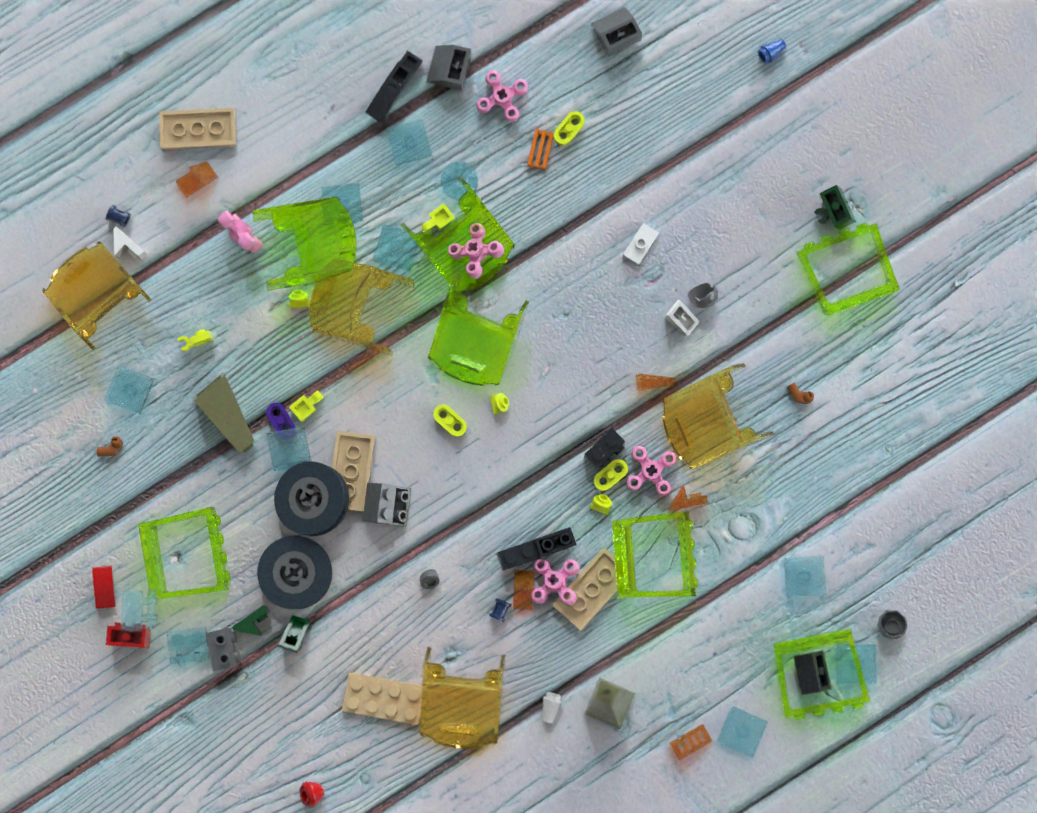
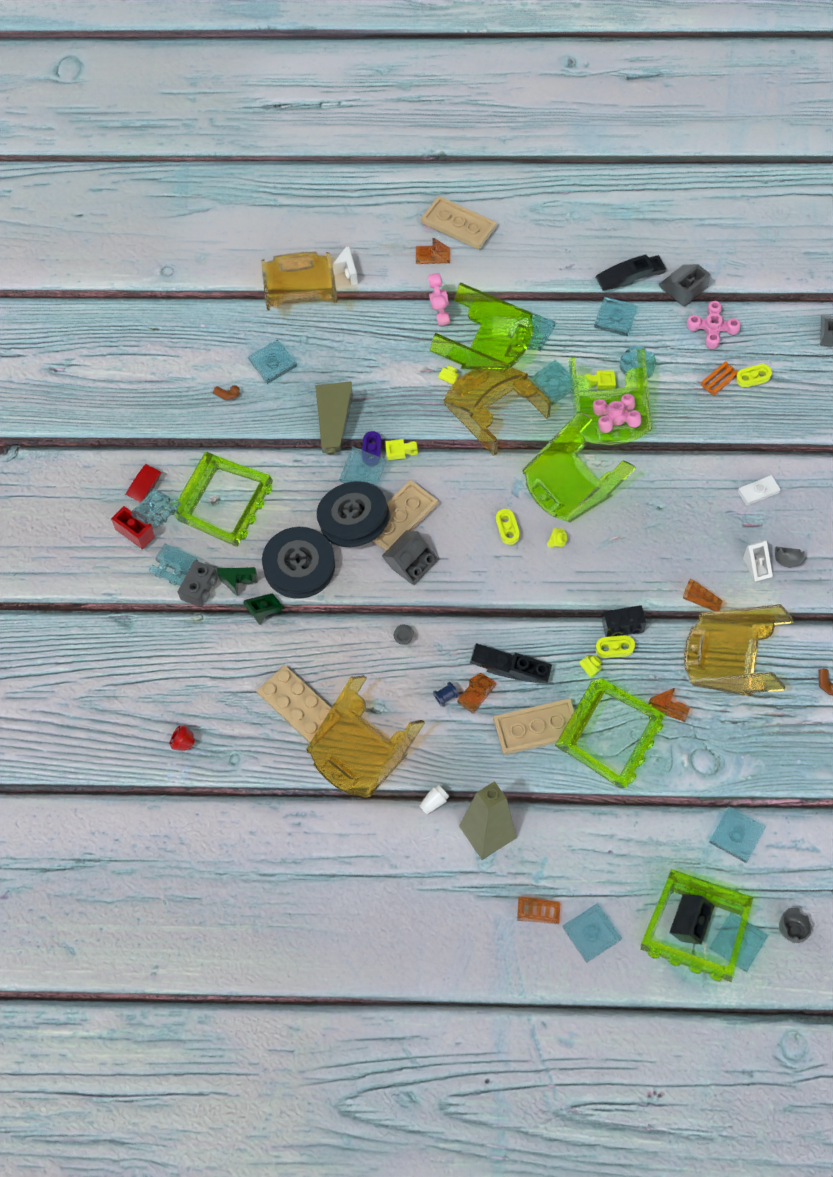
camera: 30 degrees right, 20 degrees down
(118, 216) = (356, 246): dark blue bush -> none
(200, 338) = (350, 356): neon yellow plate -> none
(559, 587) = (509, 698): bright pink gear -> none
(656, 477) = (653, 664): bright pink gear -> none

